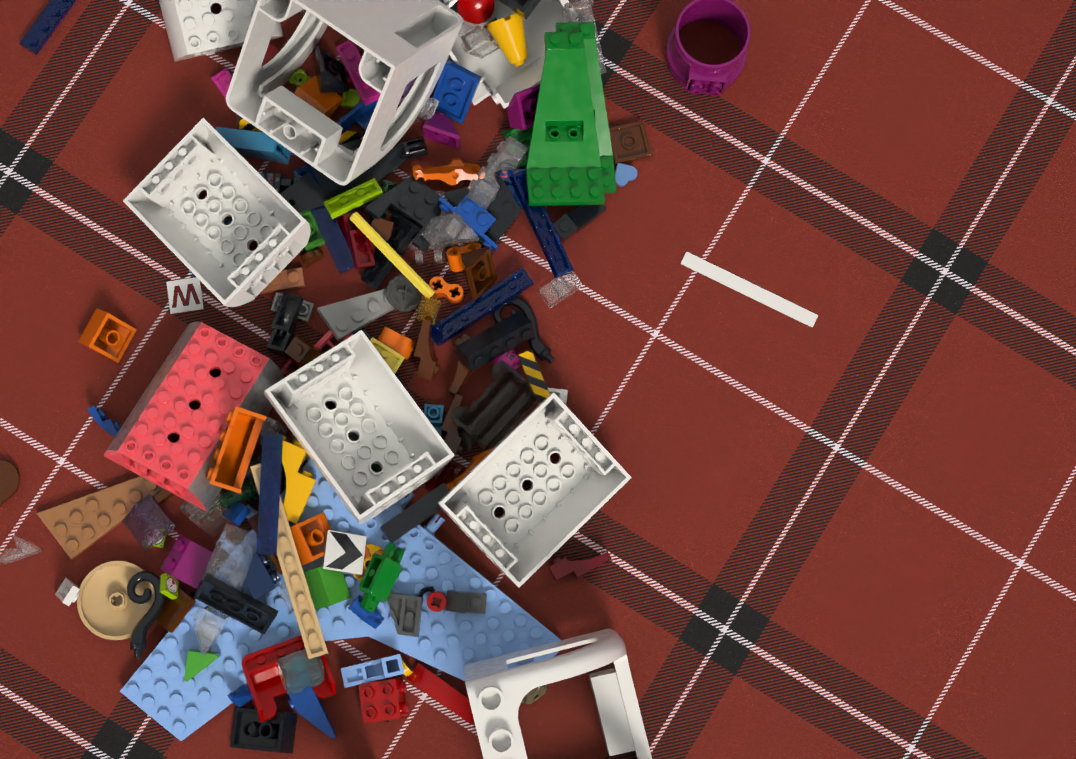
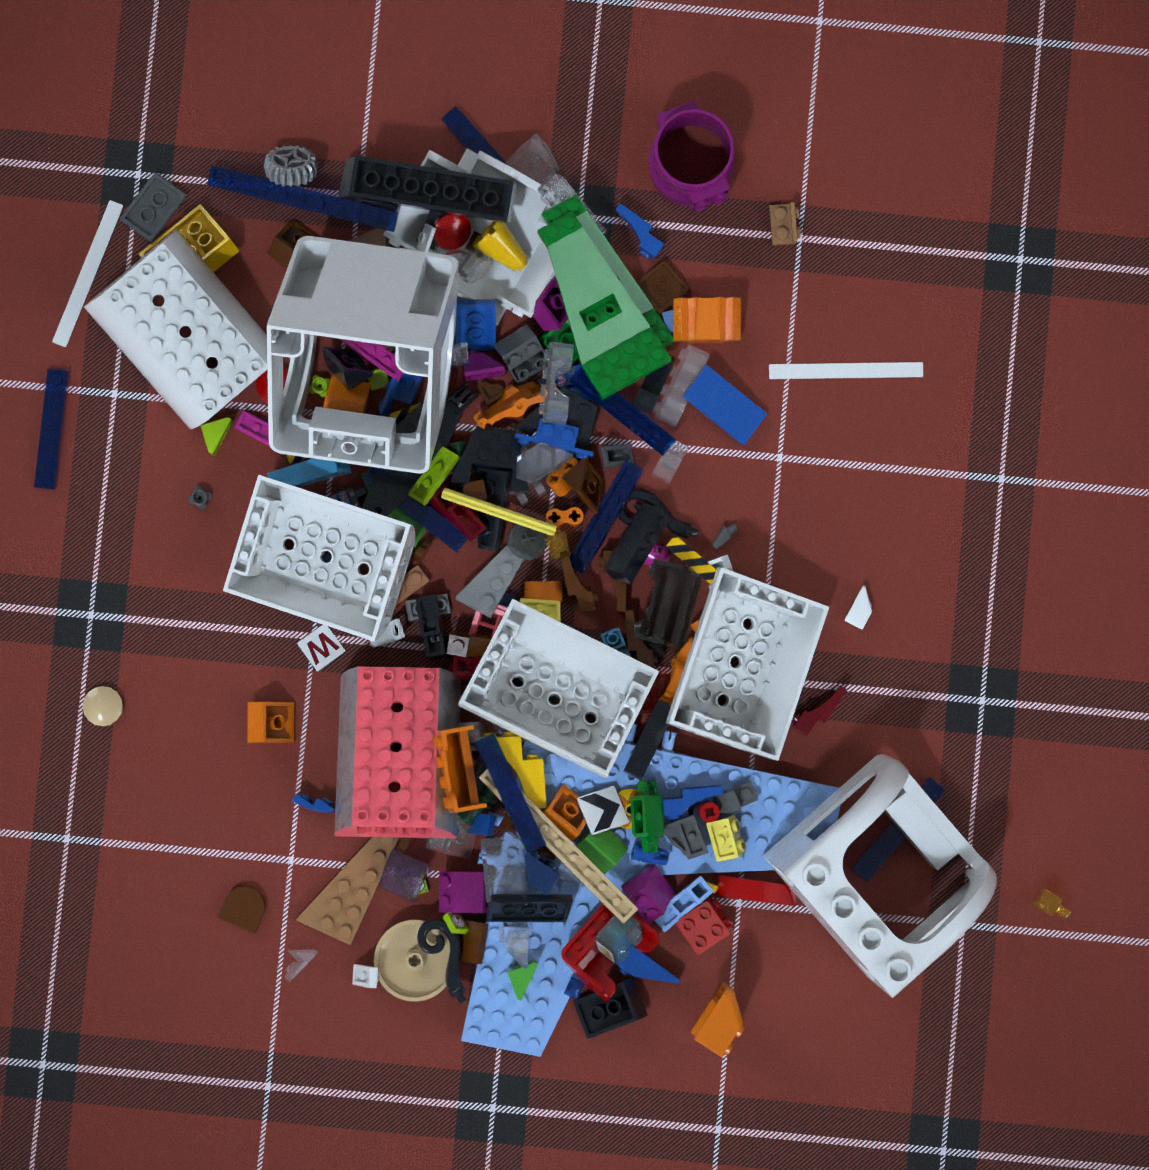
camera: 25 degrees left, 5 degrees up
(146, 120) = (193, 499): none -> dark grey plate
(192, 74) = (215, 433): none -> lime slope
(244, 312) = (390, 634): none -> white bracket
(348, 646) = (649, 893): none -> magenta slope
(409, 581) = (675, 806): none -> blue slope
(439, 156) = (490, 392): none -> reddish brown tile
(440, 632) = (726, 838): none -> light yellow bracket
(481, 136) = (521, 353): none -> dark grey slope
(516, 259) = (615, 455): none -> dark grey slope
(573, 374) = (724, 535): none -> dark grey bar
(583, 708) = (889, 839): none -> clear blue plate
(602, 231) = (673, 404): none -> clear brick
(630, 264) = (724, 405): none -> blue tile
(635, 102) = (648, 244): none -> blue slope
(652, 185) = (707, 320): none -> orange slope
(658, 496) = (860, 609): none -> white slope
(757, 142) = (783, 224): none -> medium nougat bracket

